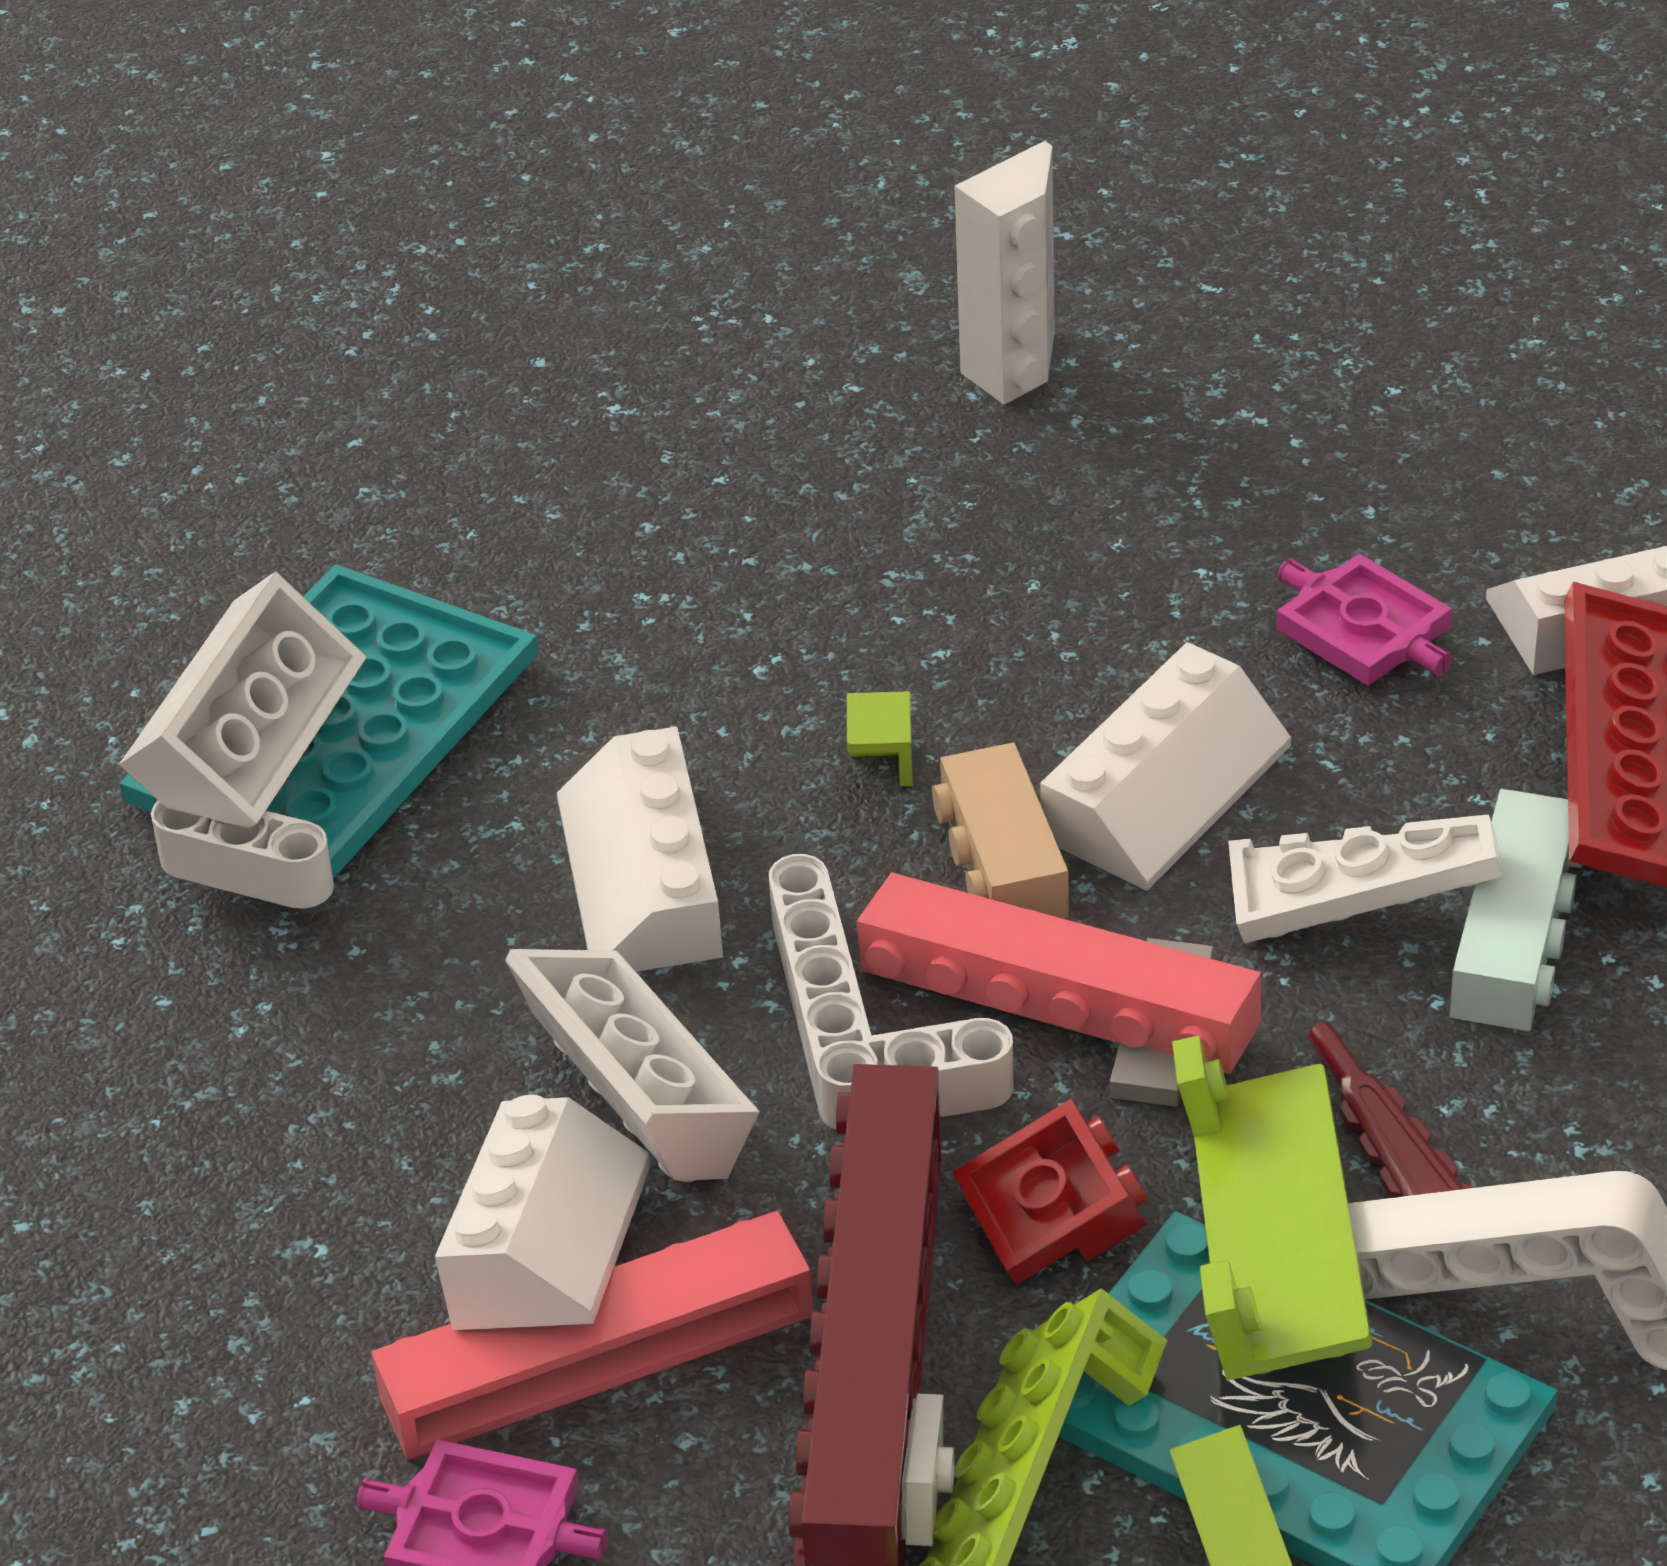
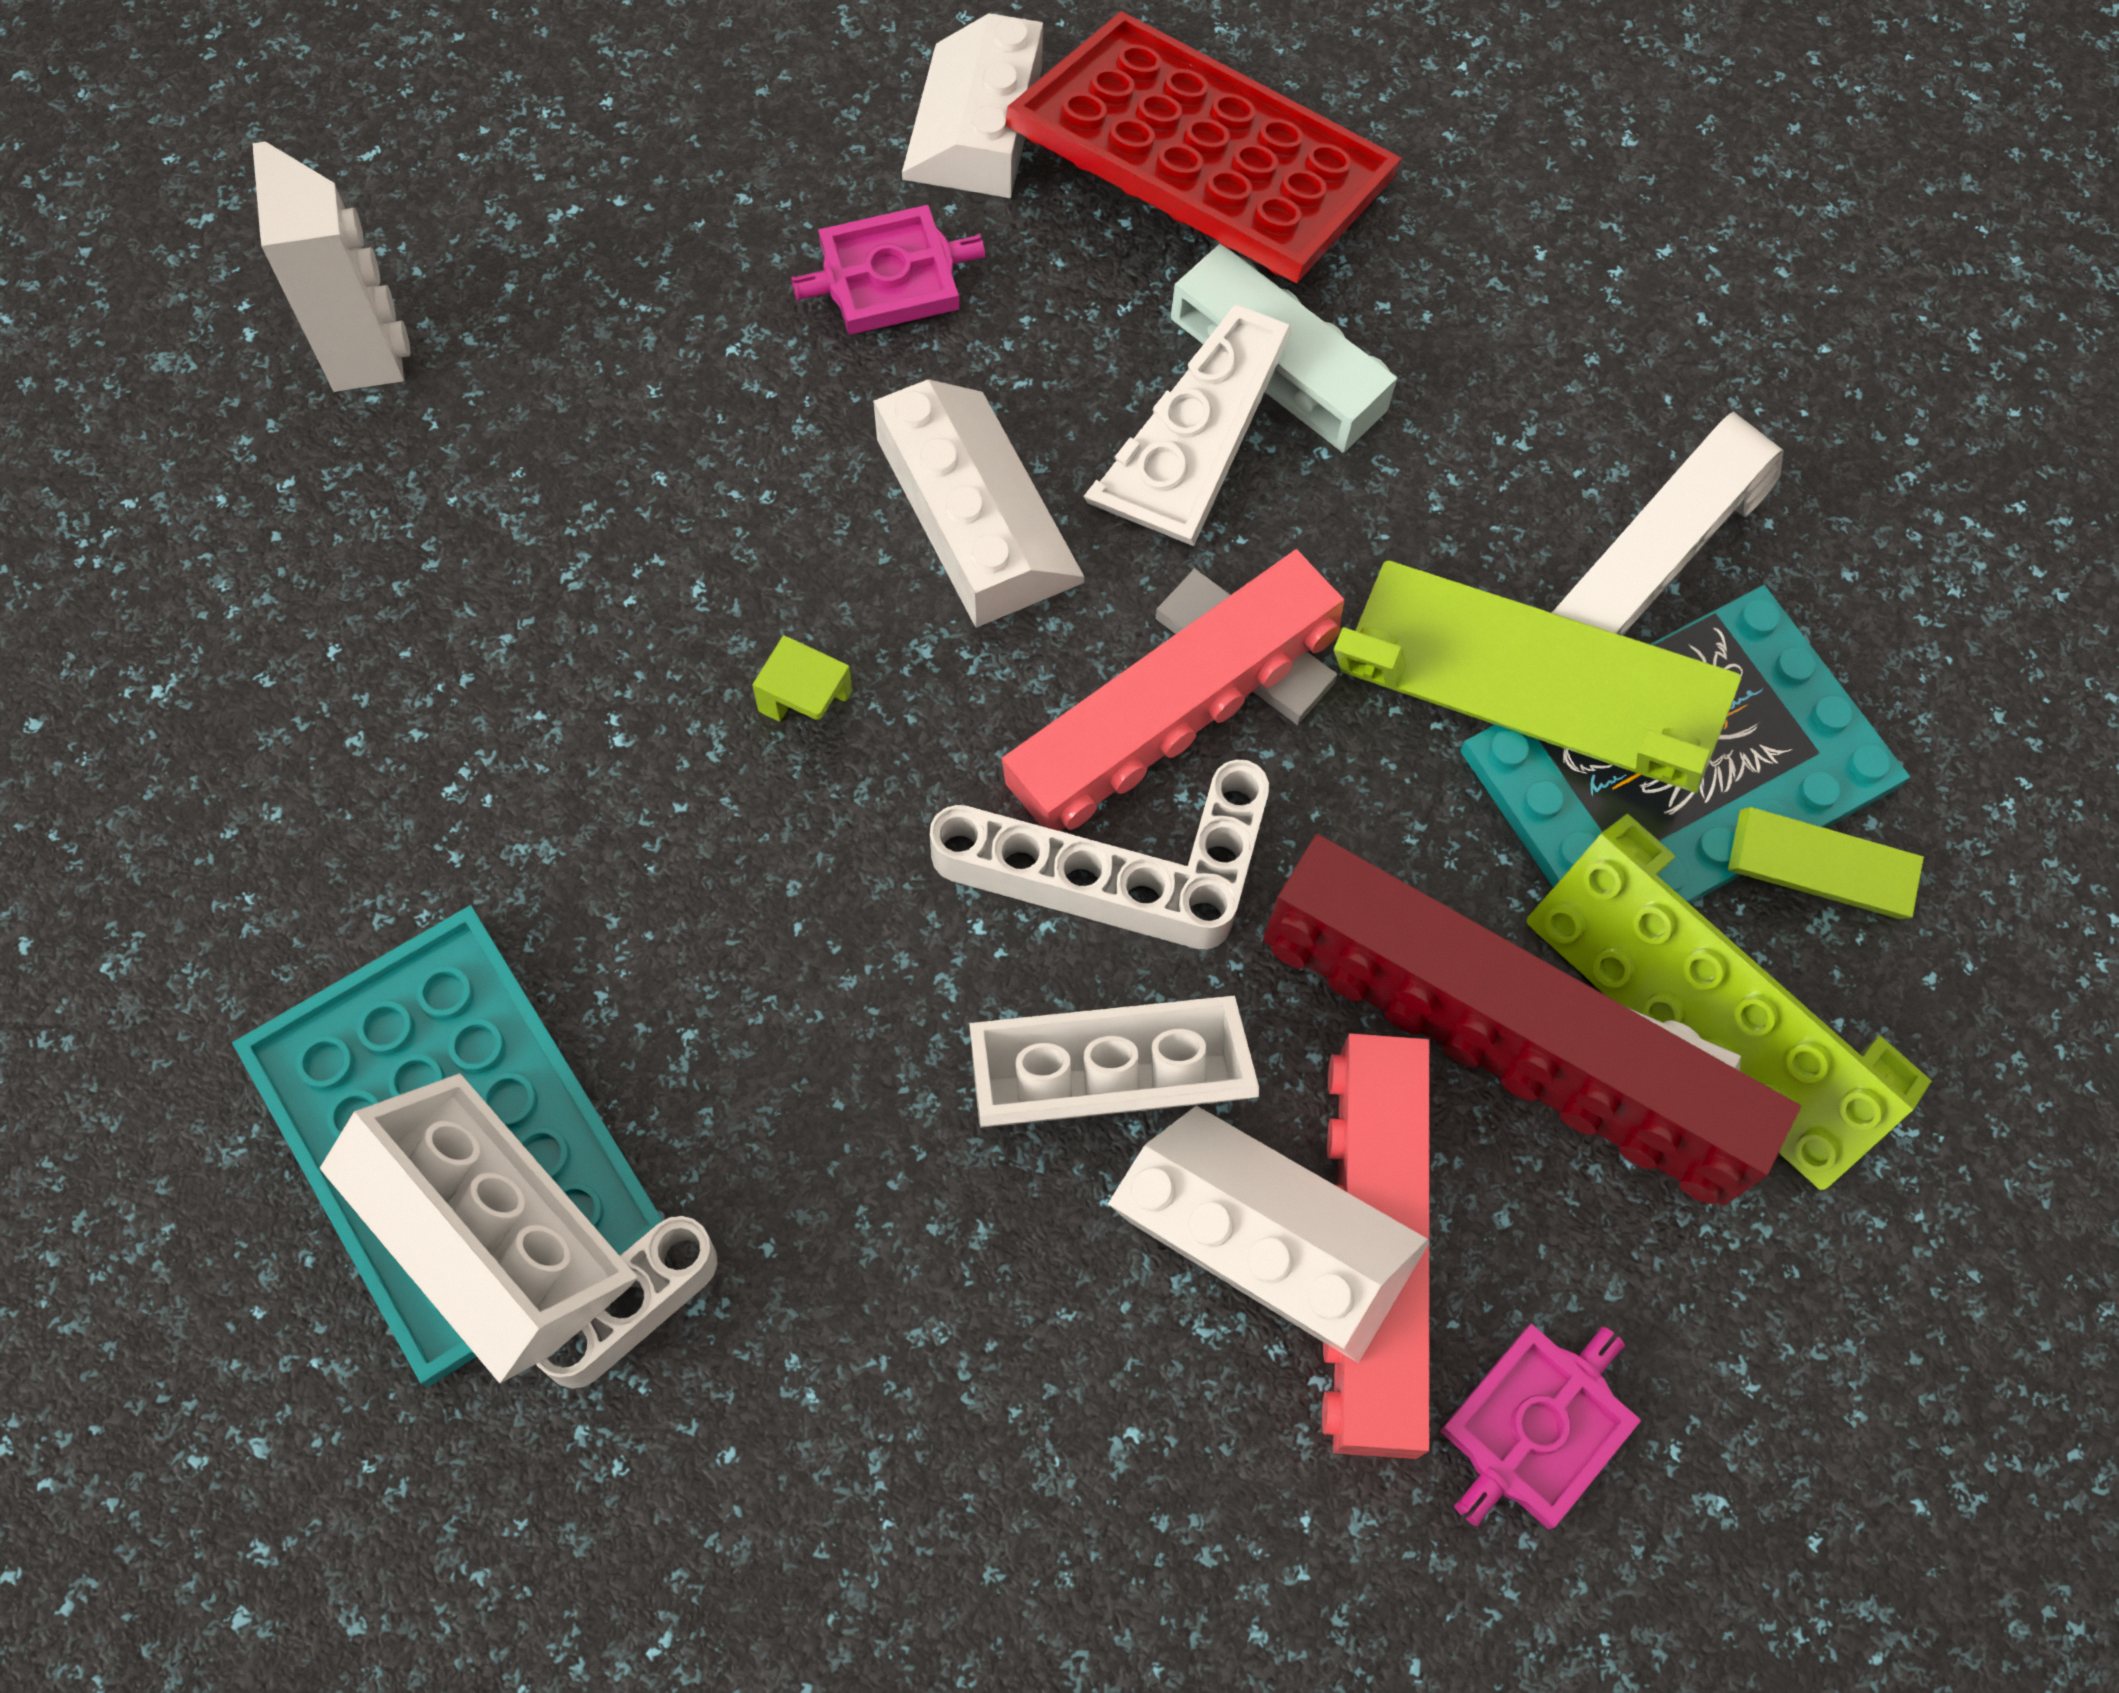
camera: 70 degrees left, 25 degrees up
(641, 854) = (822, 948): white slope -> none
(1001, 830) = (982, 653): tan brick -> none
(1052, 1192) = (1414, 814): red plate -> none
(1387, 1133) = (1500, 558): dark red sword -> none

